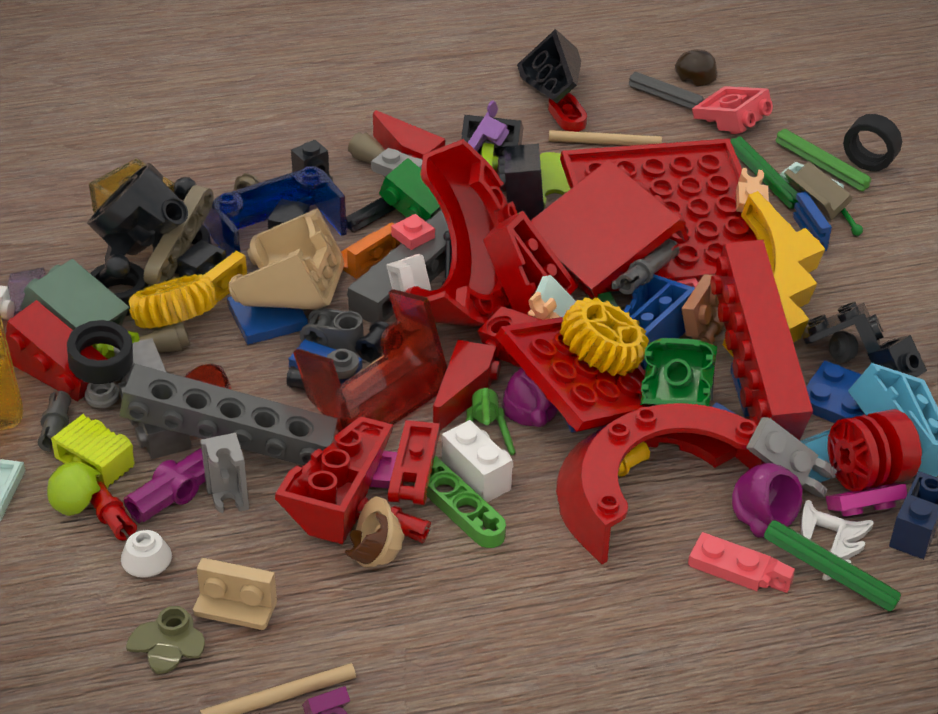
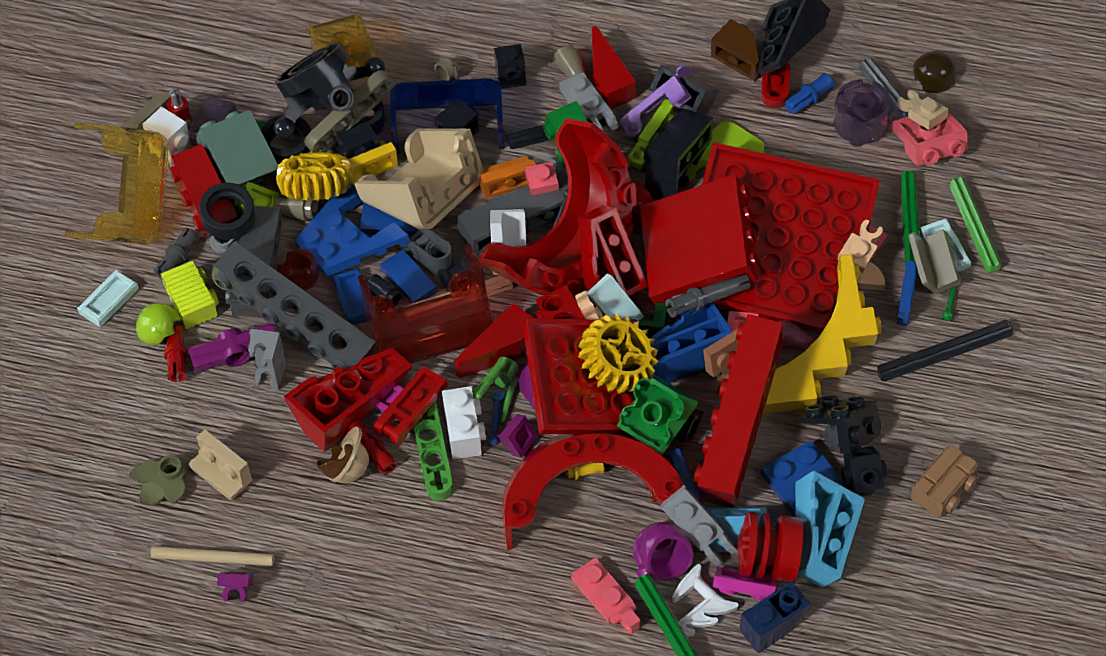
camera: 30 degrees right, 15 degrees up
(145, 554) = (181, 402): white cone -> none
(239, 351) = (340, 243): none -> blue wing
(275, 389) = (350, 296): none -> blue tile
(345, 362) = (414, 293): dark grey plate -> none
(493, 433) = (498, 398): none -> blue hinge
(518, 97) = (736, 48): none -> reddish brown slope
(540, 454) = (518, 435): none -> magenta tile
(602, 138) = (792, 125): tan bar -> none
(603, 111) = (809, 93): none -> blue axle
(664, 106) = (862, 112): none -> clear purple brick
(718, 88) = (924, 112): none -> tan plate
(877, 256) = (944, 350): none -> black axle
(883, 128) = (1023, 228): black tyre -> none

